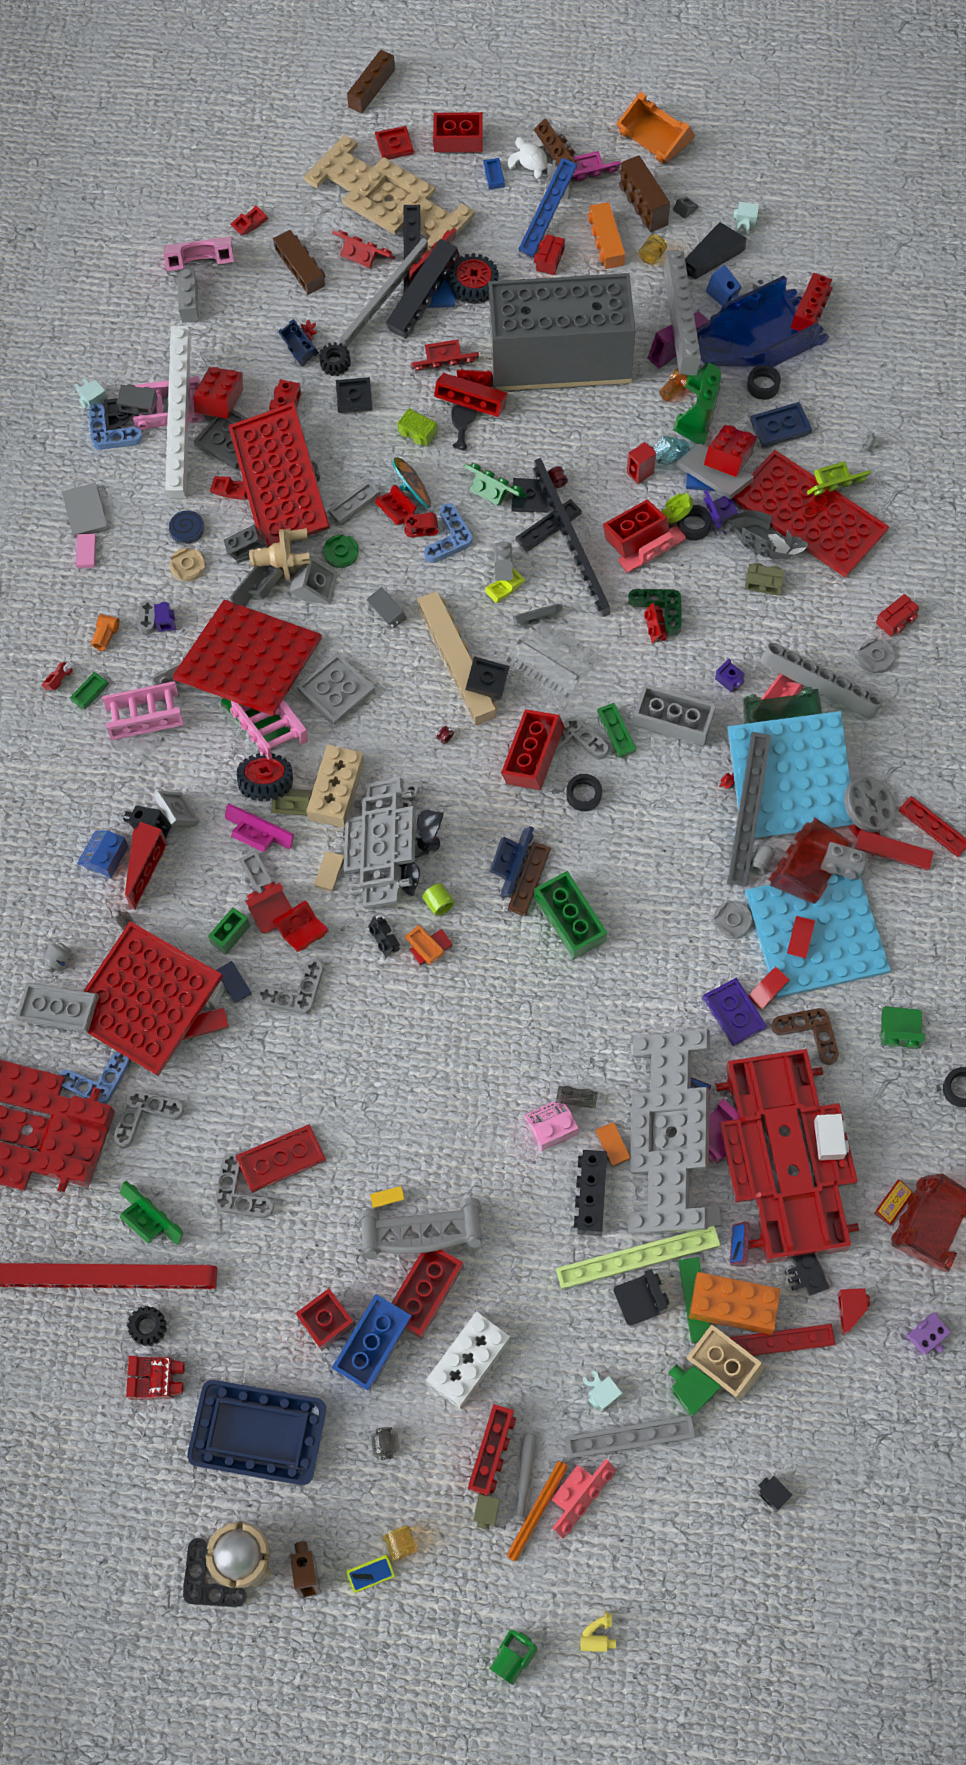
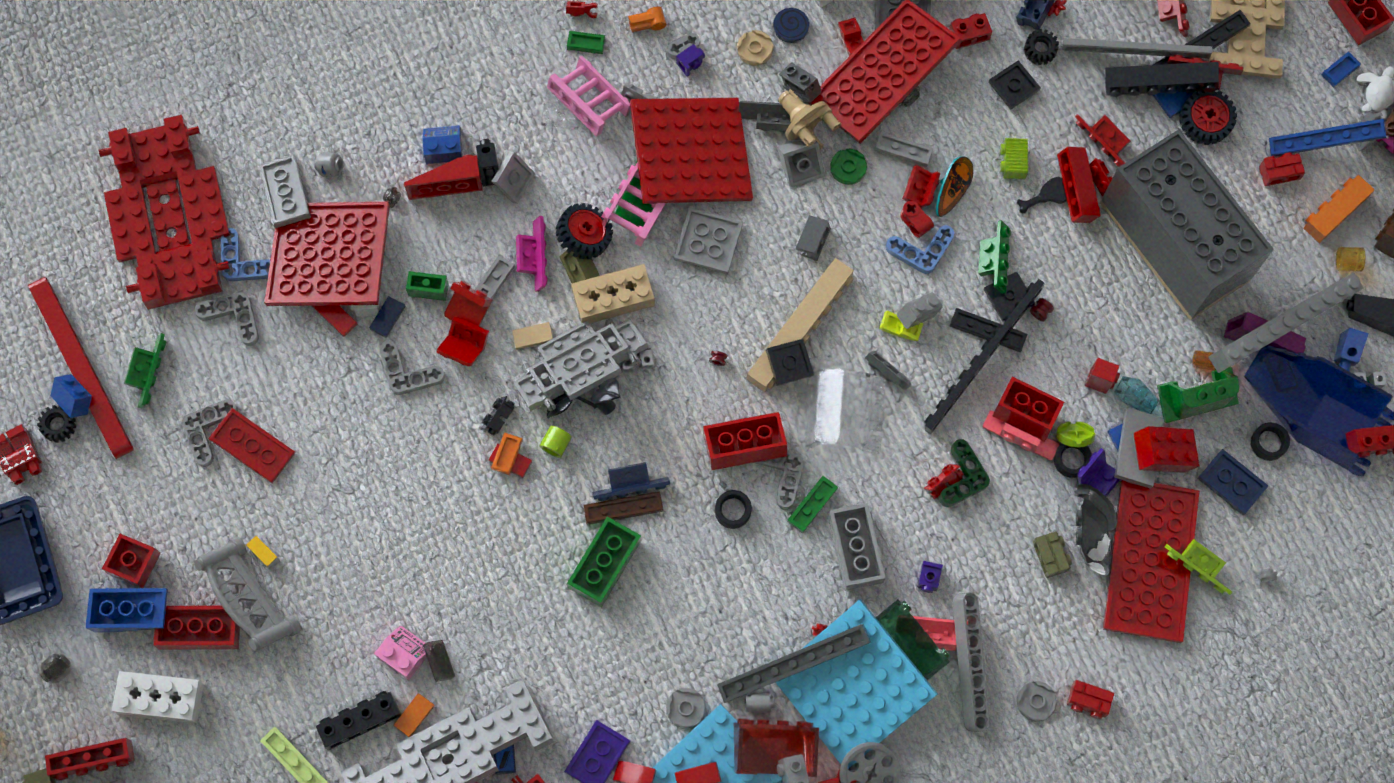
camera: 55 degrees right, 5 degrees up
(131, 1295) = (71, 396): none -> blue brick

